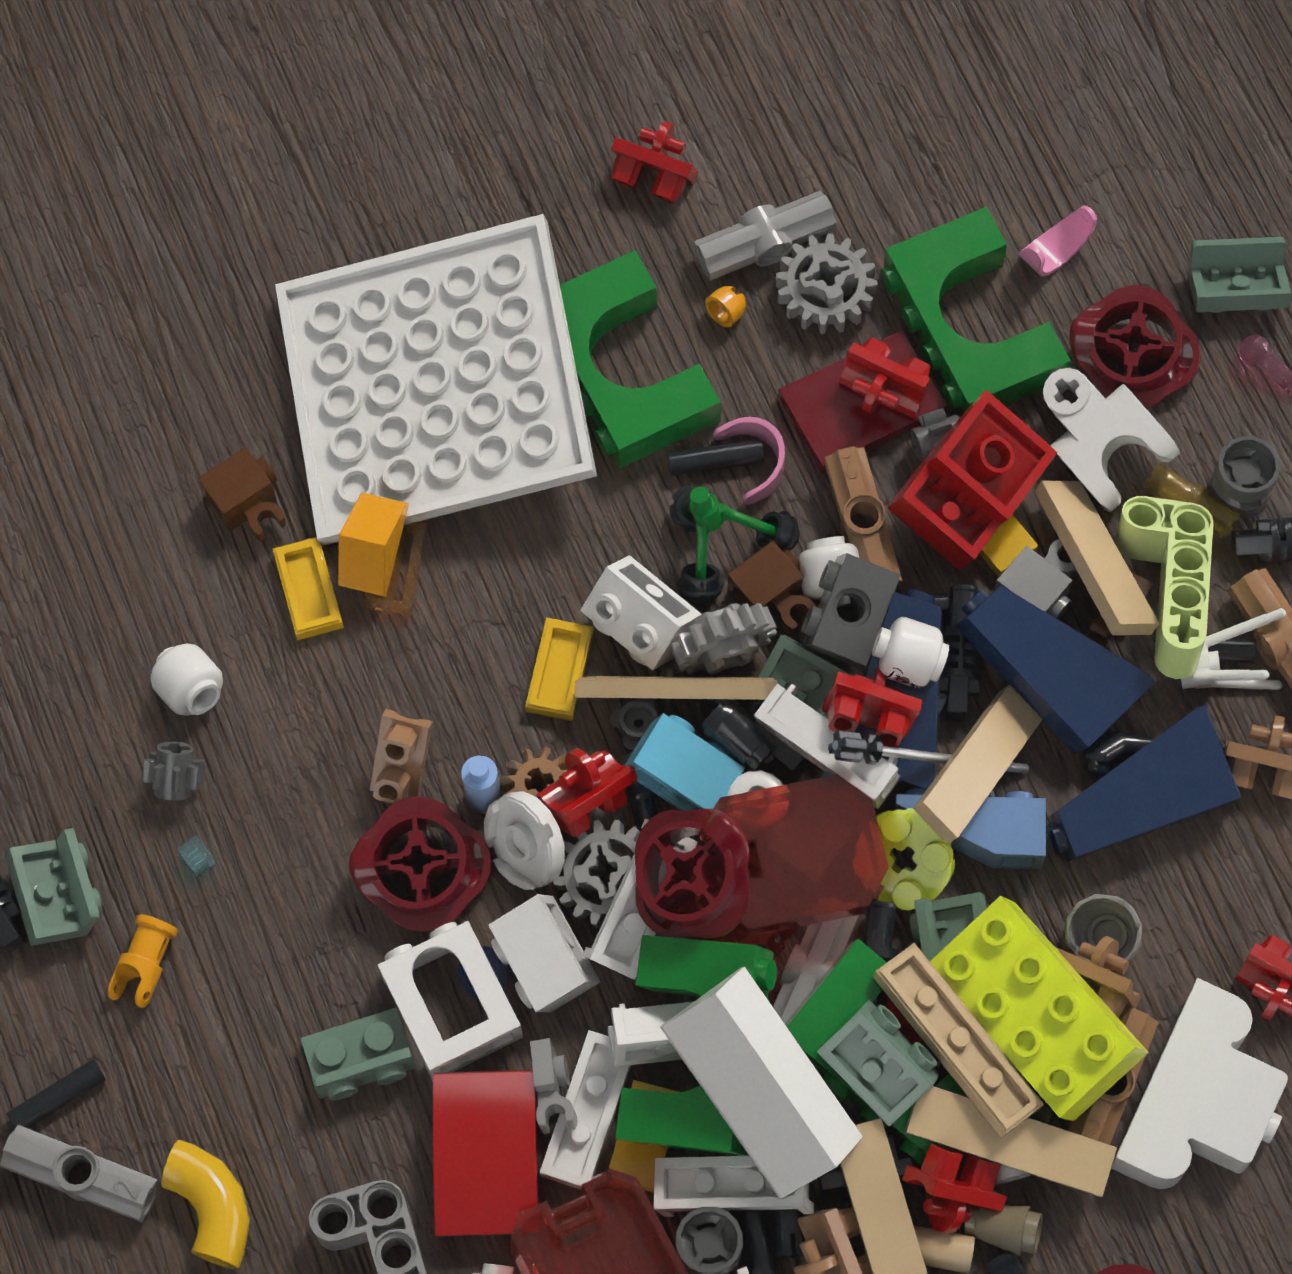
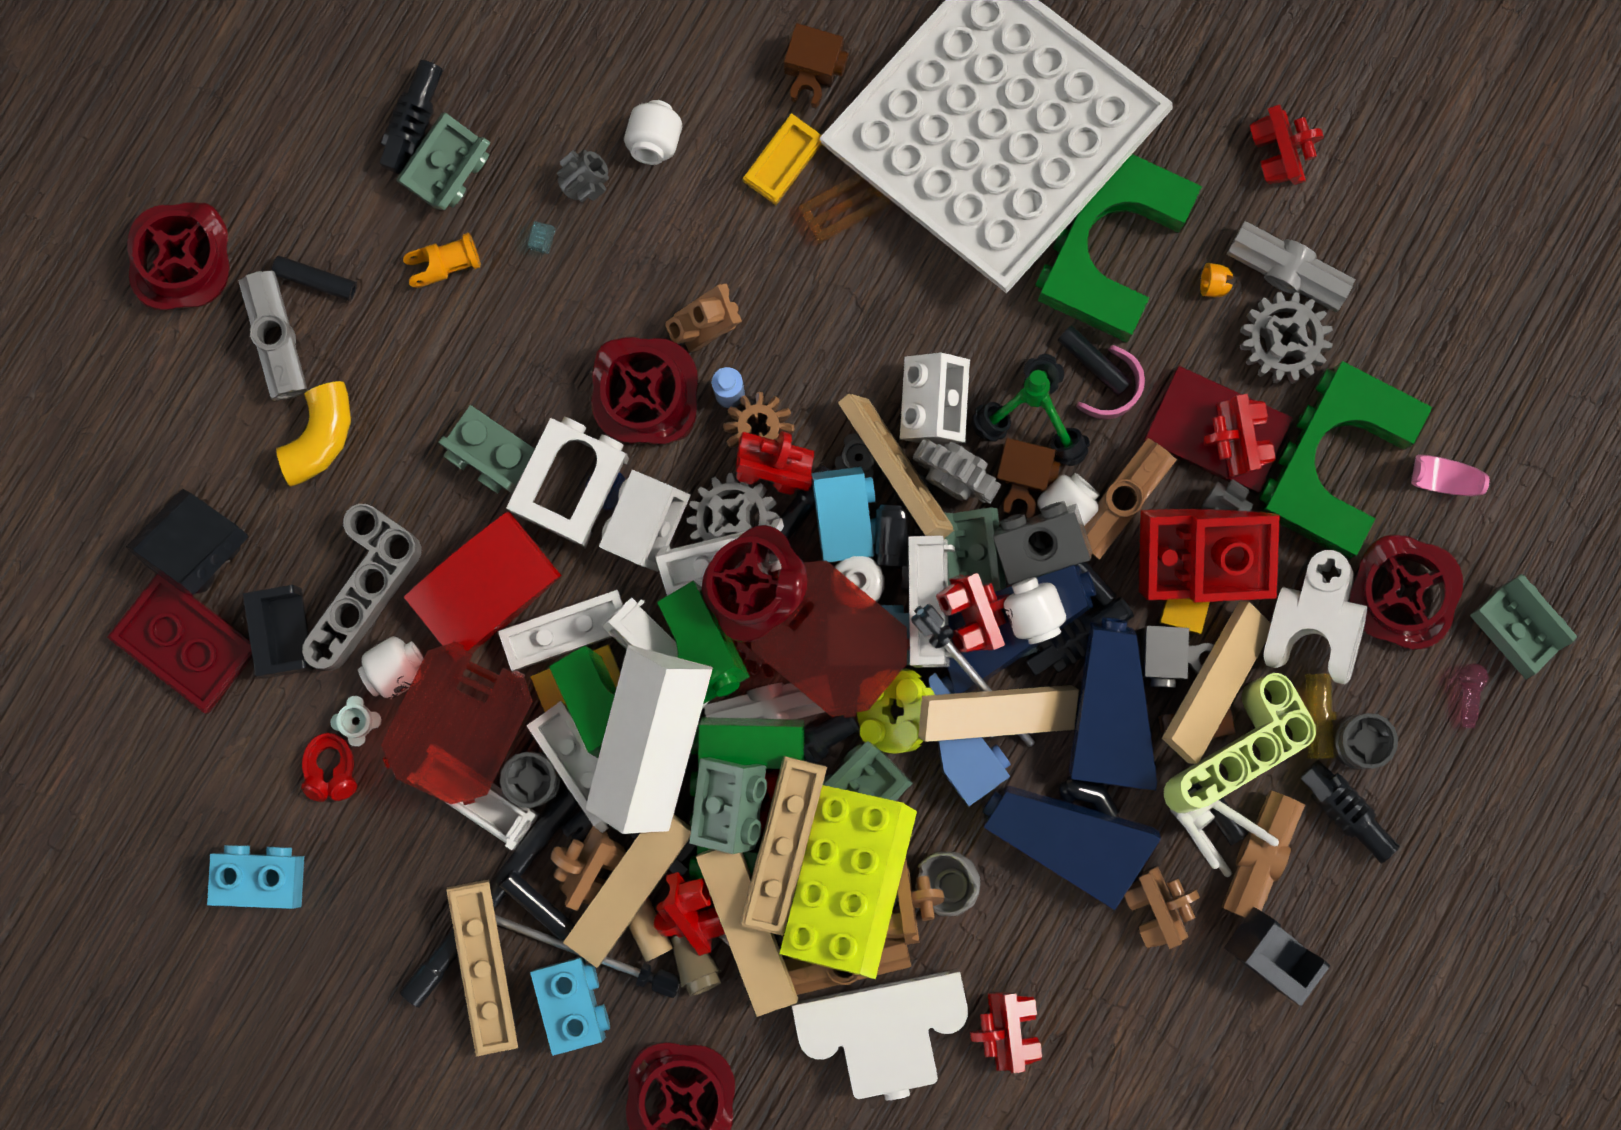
camera: 55 degrees right, 15 degrees up
(370, 543) = (841, 176): light orange slope -> none
(524, 840) = (711, 448): white tile -> none
(550, 1075) = (564, 588): light grey plate -> none
(558, 664) = (857, 373): yellow tile -> none

